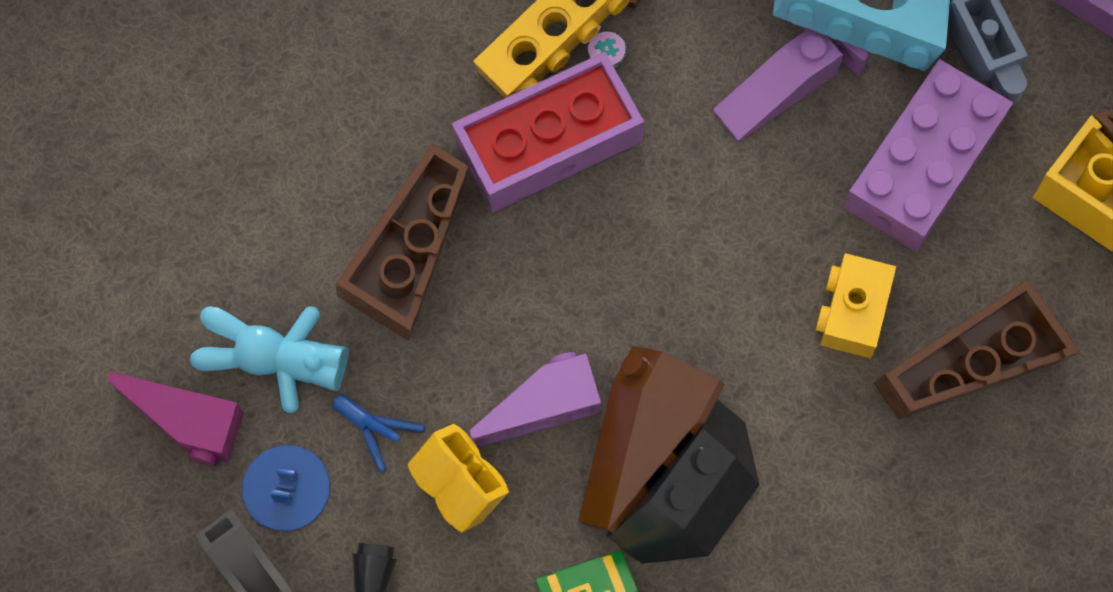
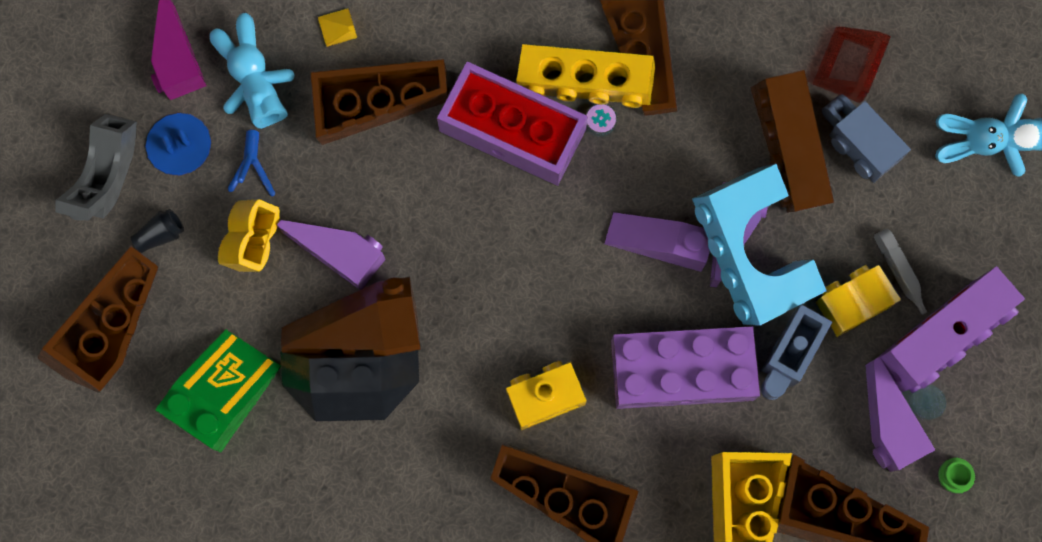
camera: 50 degrees right, 5 degrees up
(292, 232) = (337, 27): none -> yellow slope

